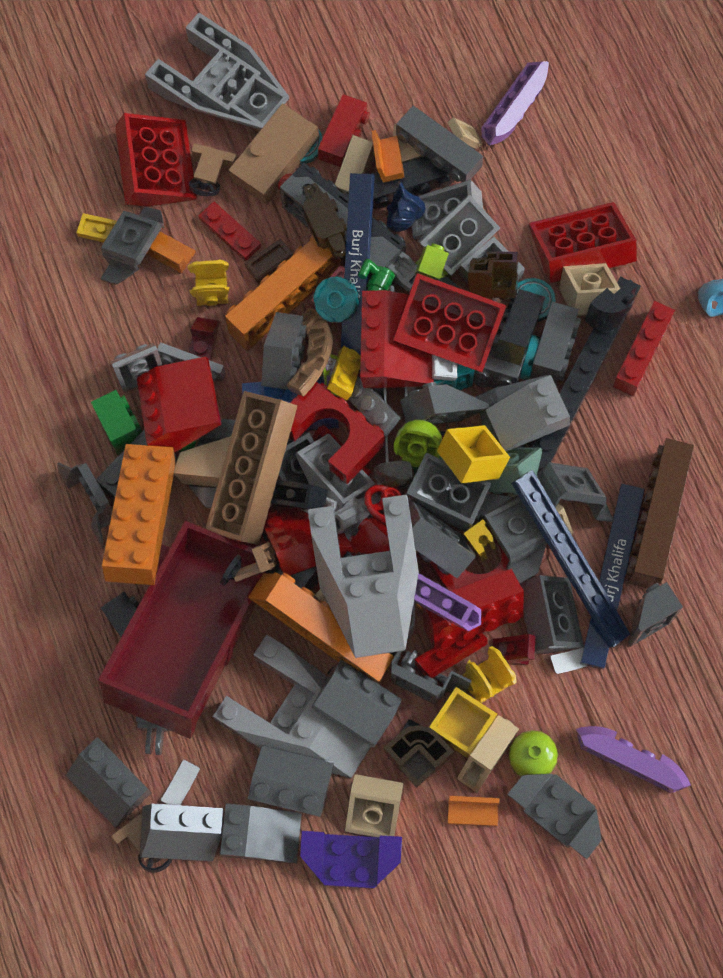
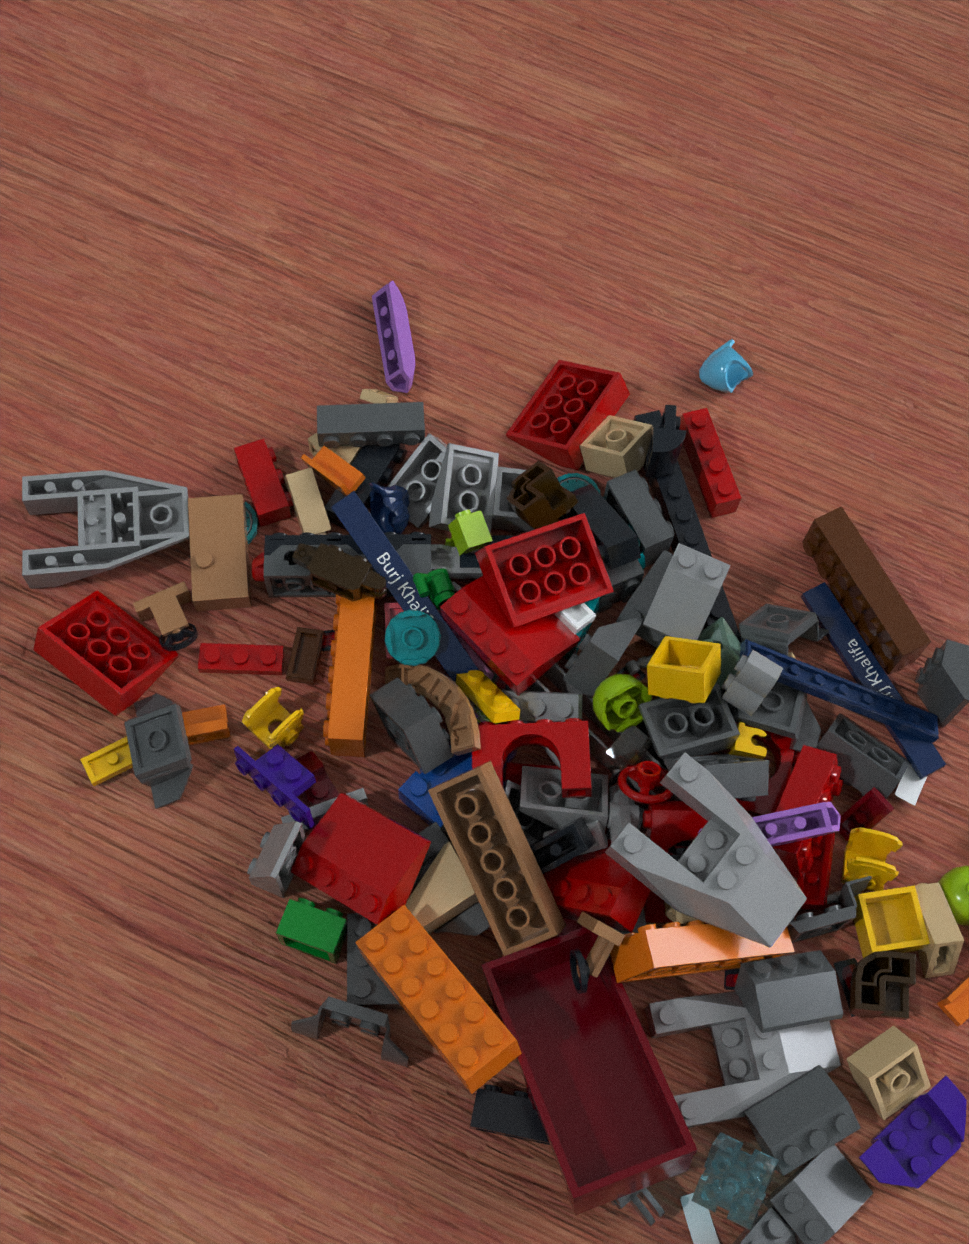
camera: 50 degrees left, 5 degrees down
(182, 316) = (281, 777): none -> dark purple bracket
(217, 774) = (735, 1180): none -> clear light blue brick
(506, 497) = (751, 683): none -> light grey brick

